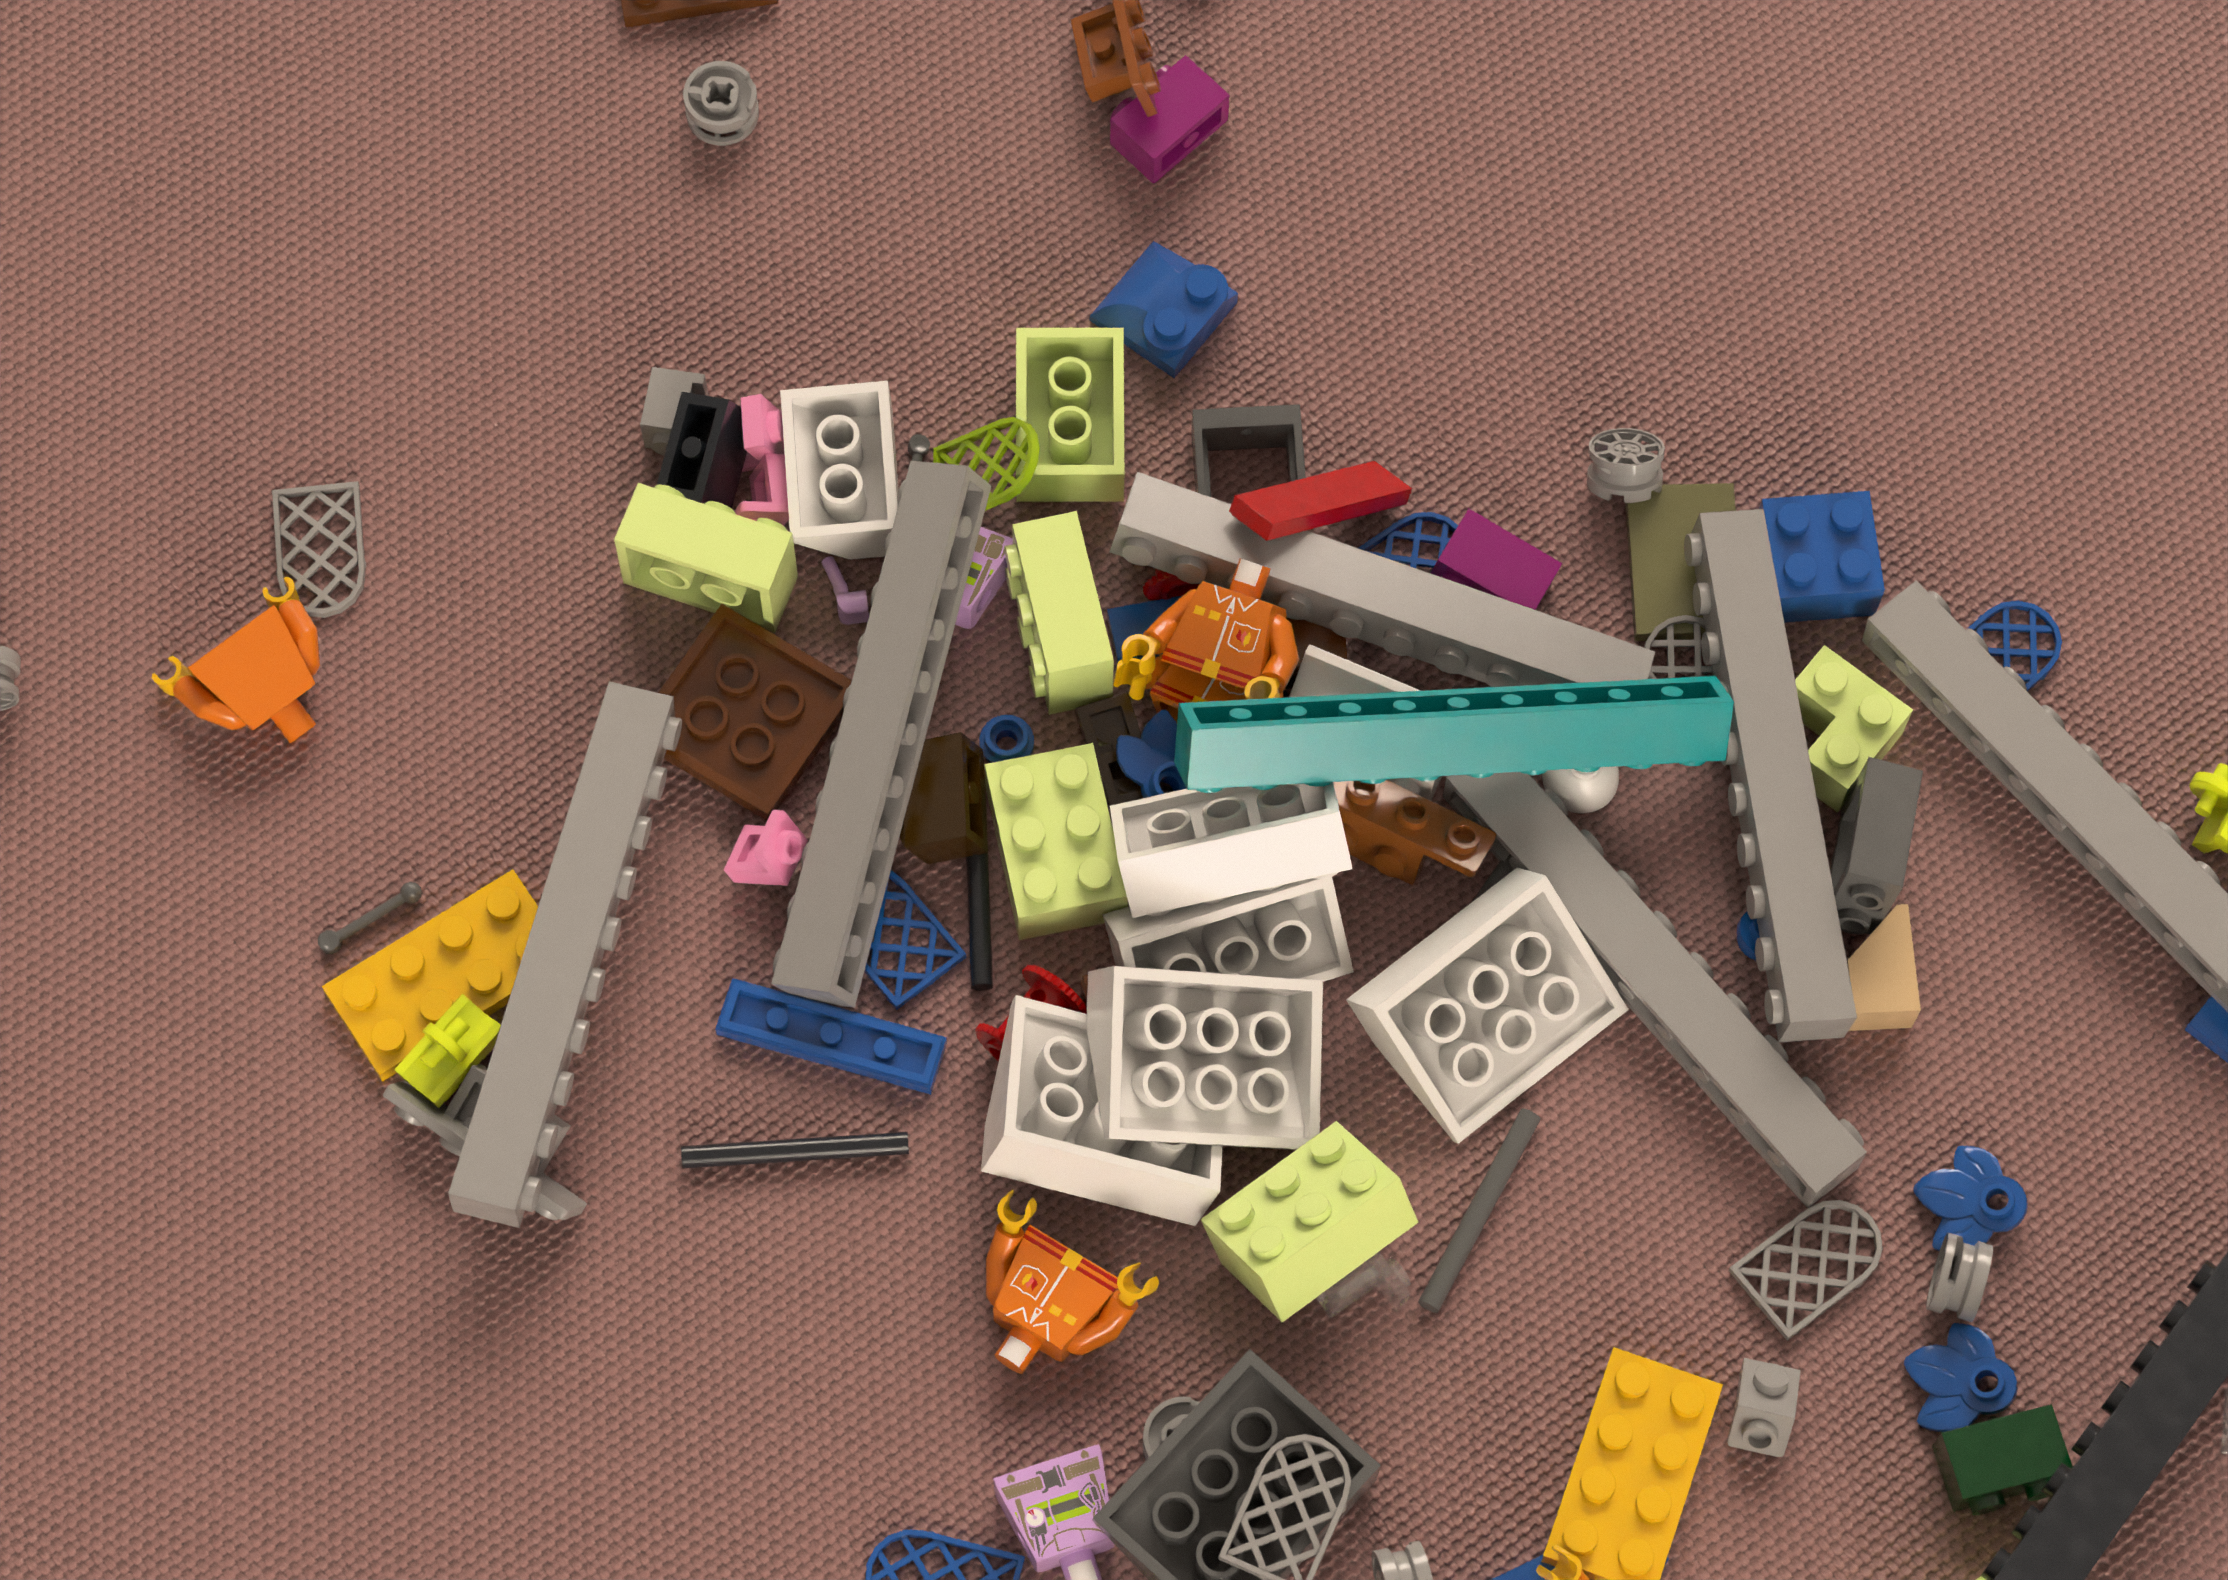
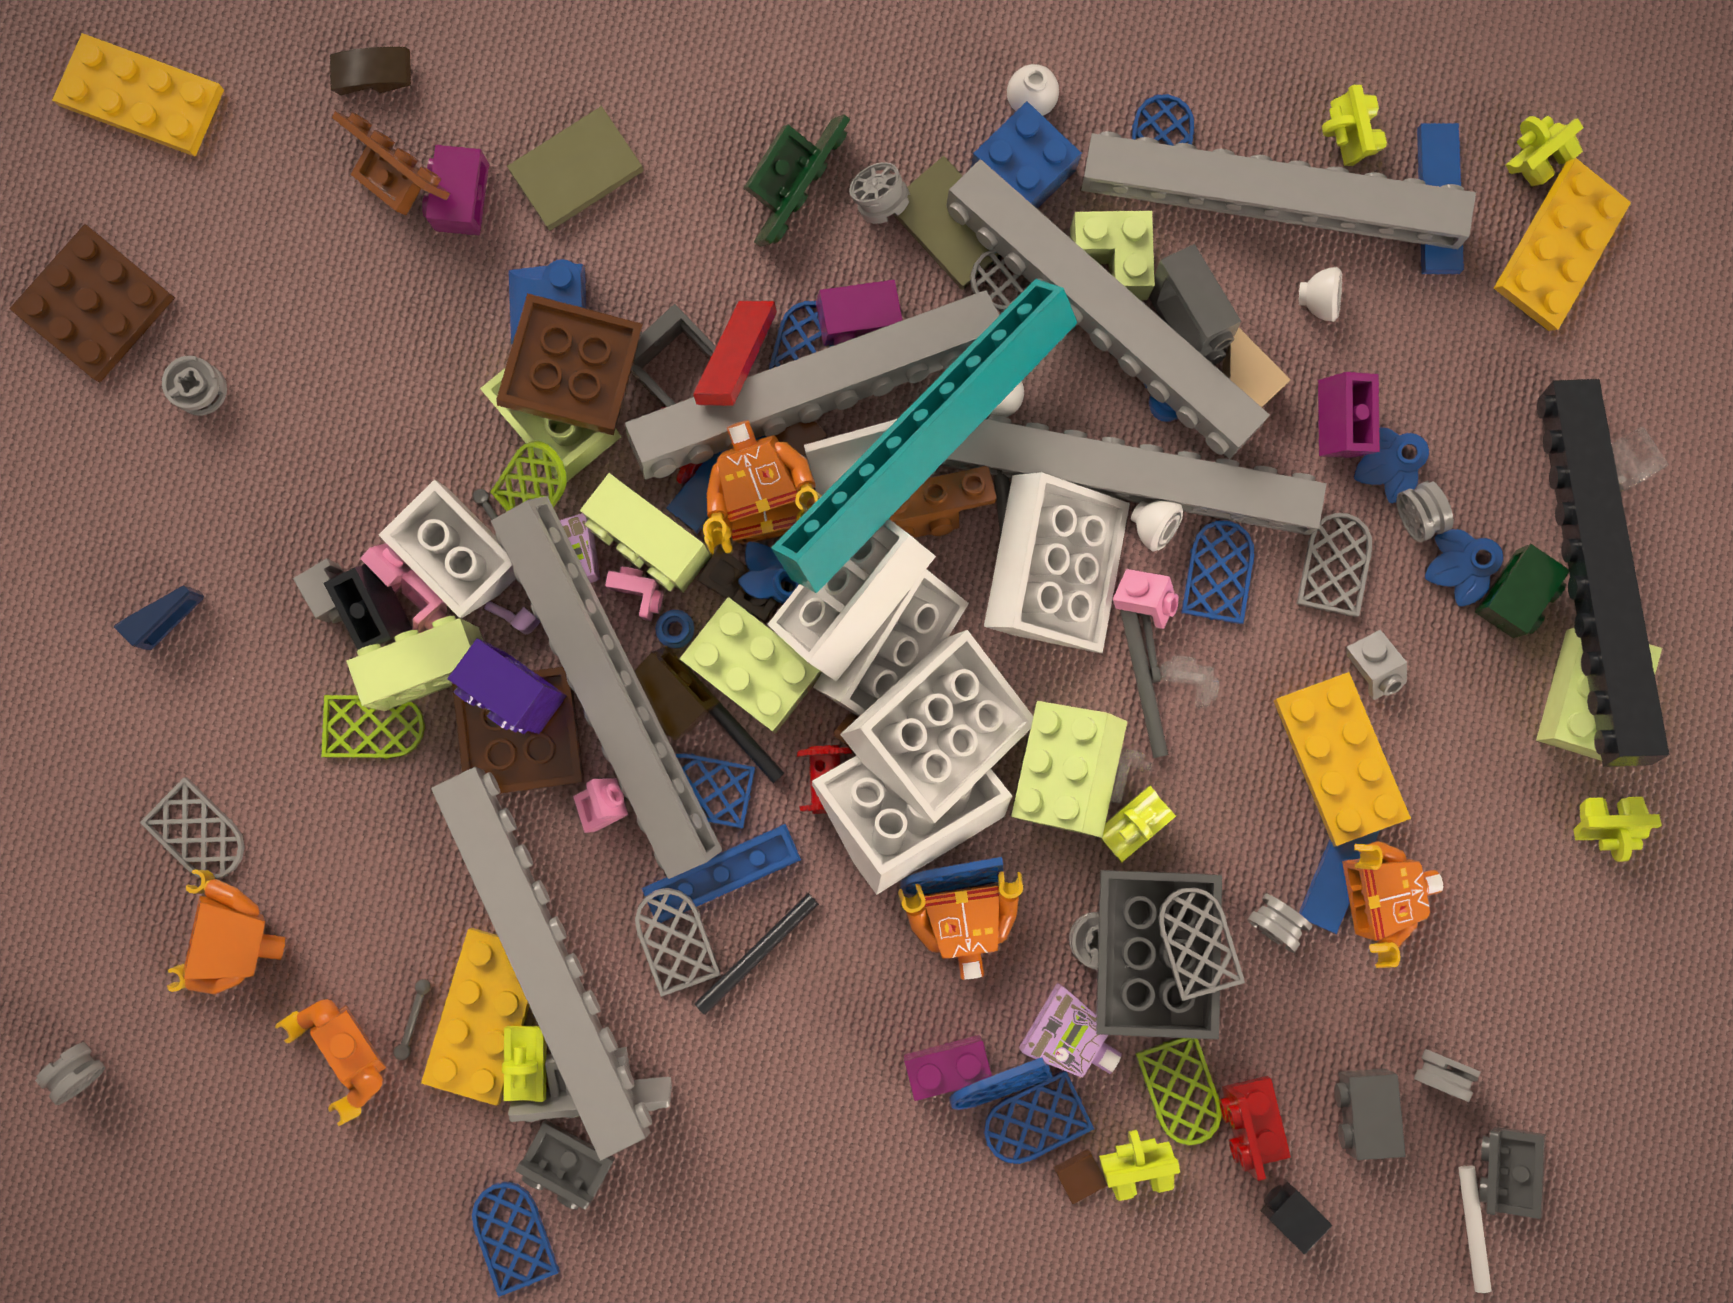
camera: 35 degrees left, 15 degrees up
(247, 1289) = (482, 1238): none -> blue window
(279, 884) = (344, 1049): none -> orange torso
(398, 1194) = (564, 1166): none -> dark grey bracket
(479, 301) = (152, 623): none -> dark blue slope
(526, 576) = (327, 727): none -> lime window
(760, 1061) = (654, 966): none -> light grey window
(777, 640) = (506, 687): none -> dark purple brick
(897, 1434) = (947, 1067): none -> magenta brick
(938, 1474) = (995, 1087): none -> blue window
(1003, 657) = (631, 582): none -> bright pink bracket
(1058, 1203) = (966, 878): none -> blue window
(1132, 374) = (569, 364): none -> reddish brown plate
(1316, 193) = (575, 168): none -> olive tile
(1334, 1345) = (1136, 823): none -> neon yellow hips
(1535, 1235) = (1184, 670): none -> clear bracket
(1542, 367) = (788, 171): none -> dark green bracket
(1545, 1137) = (1154, 669): none -> dark grey hinge
(1562, 1117) = (1147, 595): none -> bright pink bracket
(1640, 1050) = (1157, 522): none -> white brick
(1652, 1126) = (1212, 615): none -> blue window
(1898, 493) = (1035, 85): none -> white brick
(1957, 1102) = (1348, 415): none -> magenta brick
(2044, 957) = (1323, 294): none -> white brick

